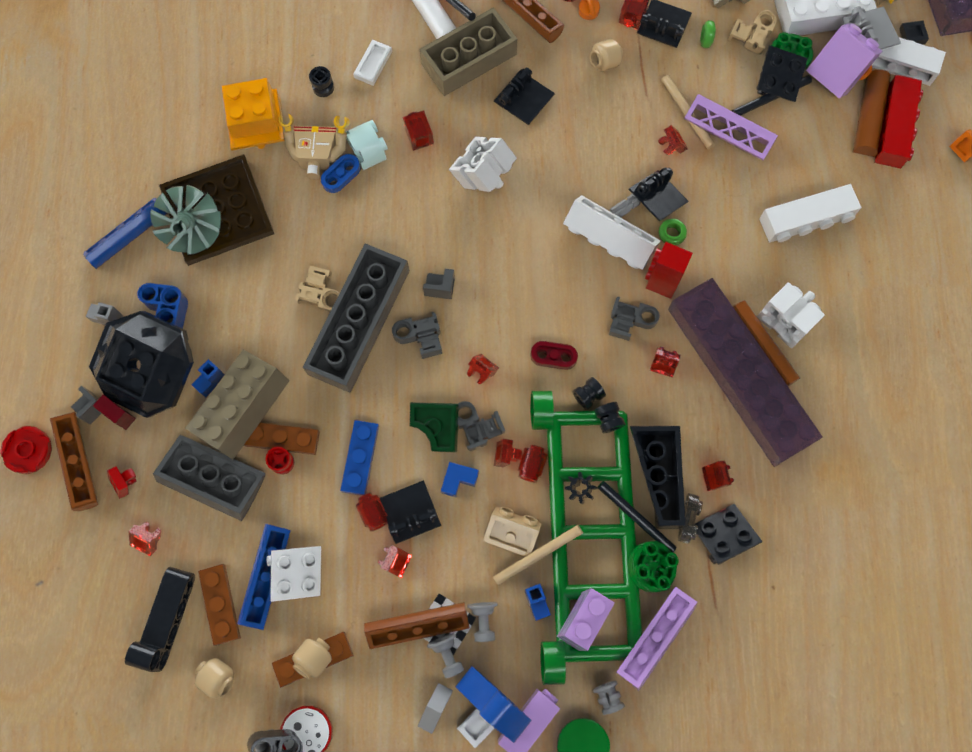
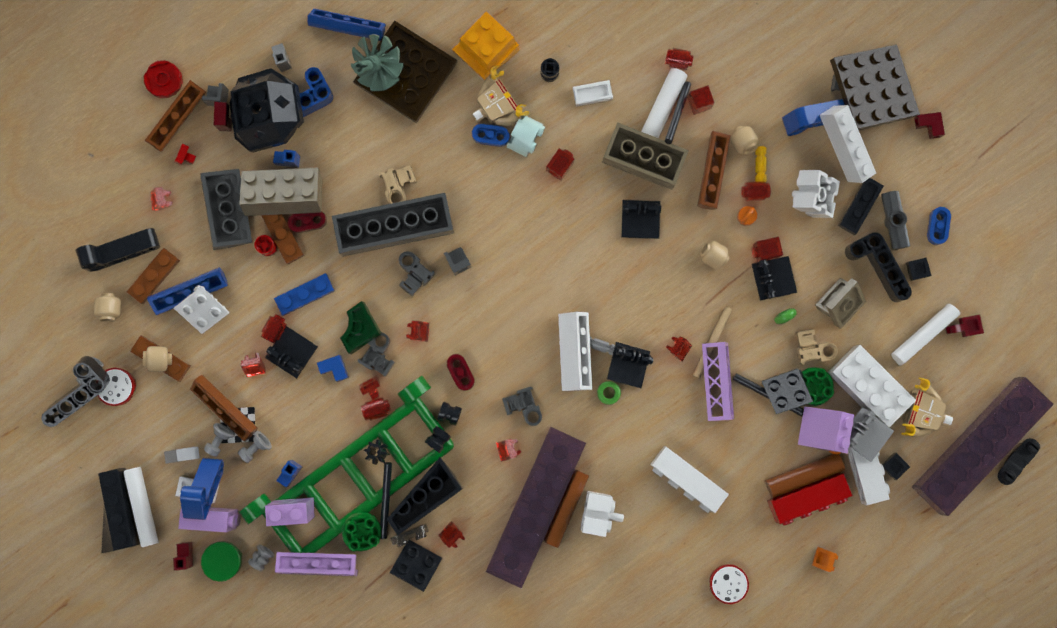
camera: 50 degrees right, 10 degrees up
(288, 403) = (307, 222): none -> dark red plate
(483, 164) = (561, 229): white brick -> none
(512, 531) = (323, 426): tan bracket -> none
(538, 554) = (317, 453): tan bar -> none
(667, 269) = (567, 409): red brick -> none
(937, 245) = (729, 584): none -> white tile

